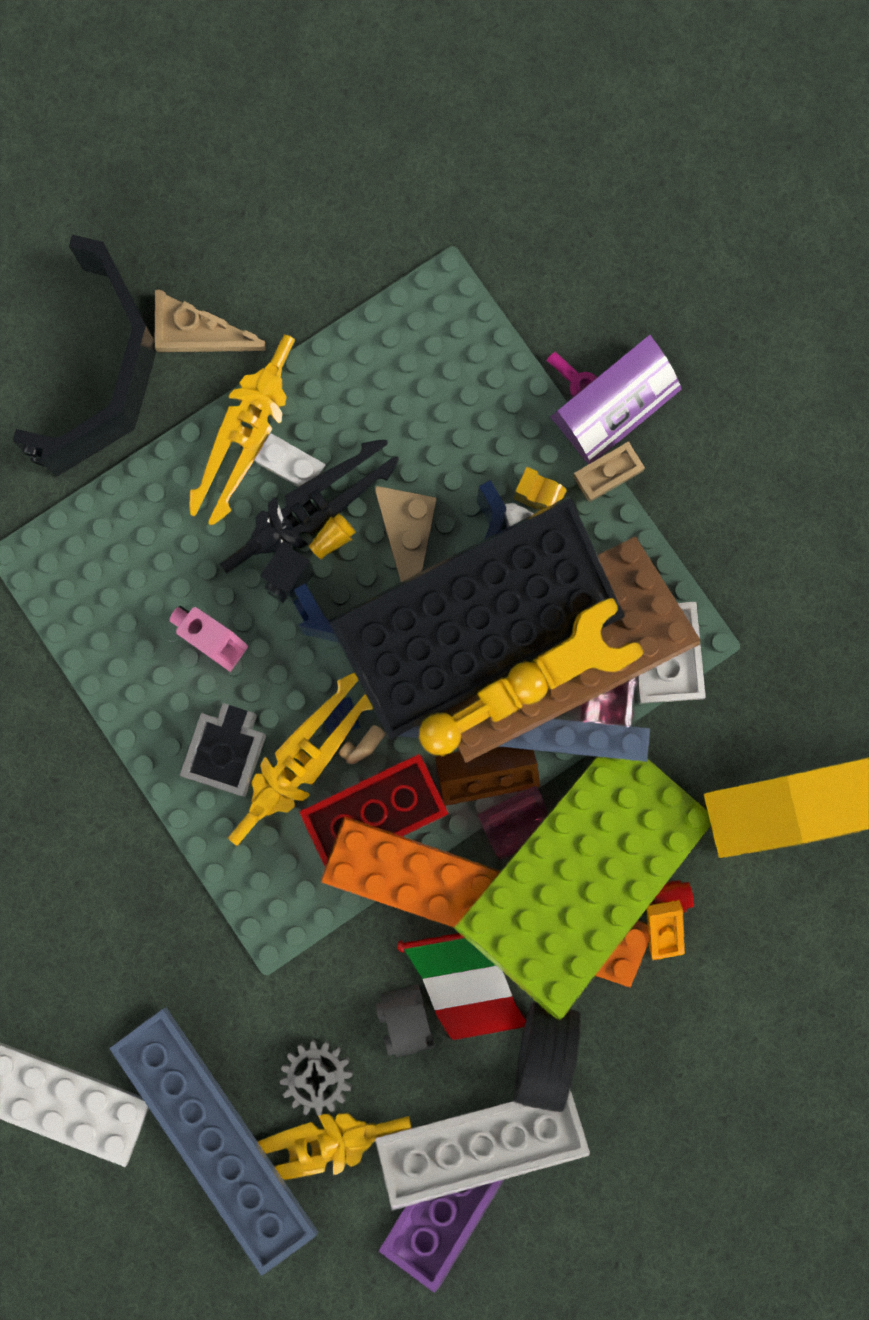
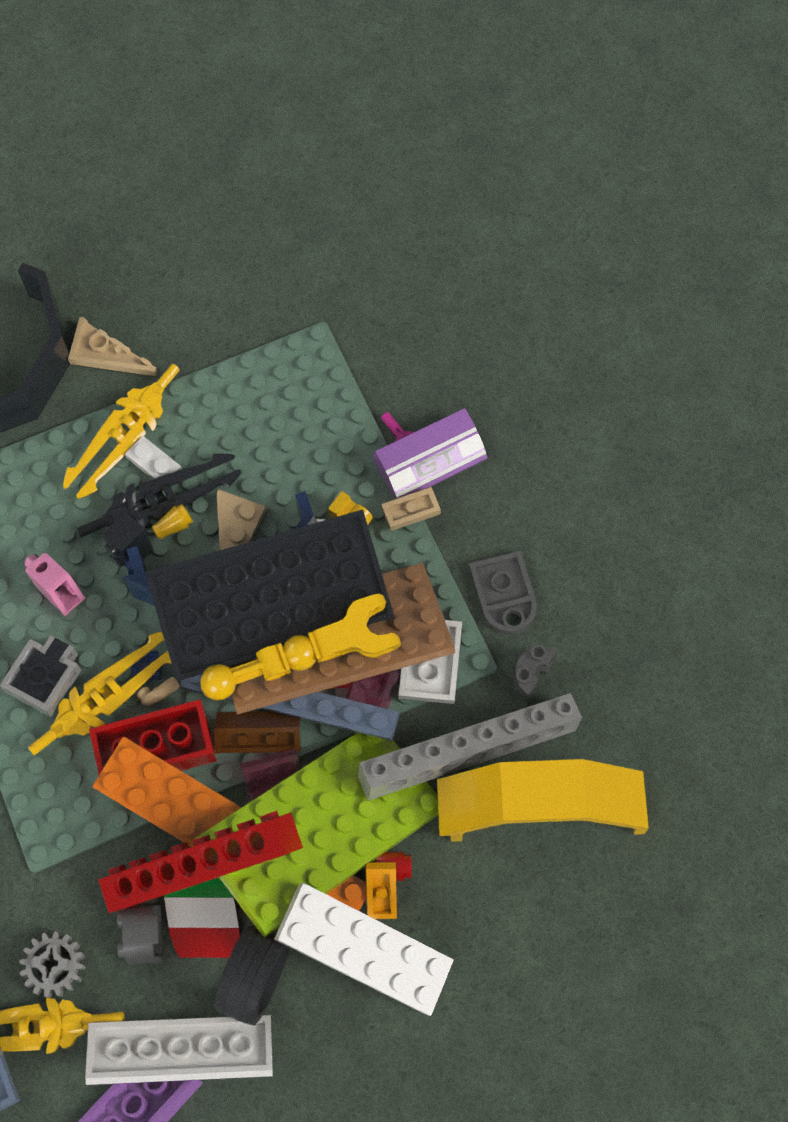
camera: 15 degrees right, 15 degrees down
(474, 953) = (202, 862): none -> red brick
(663, 1004) = (364, 949): none -> white plate
(730, 550) = (504, 590): none -> dark grey tile
(734, 750) = (468, 746): none -> light grey brick
(778, 642) = (531, 663): none -> dark grey cylinder

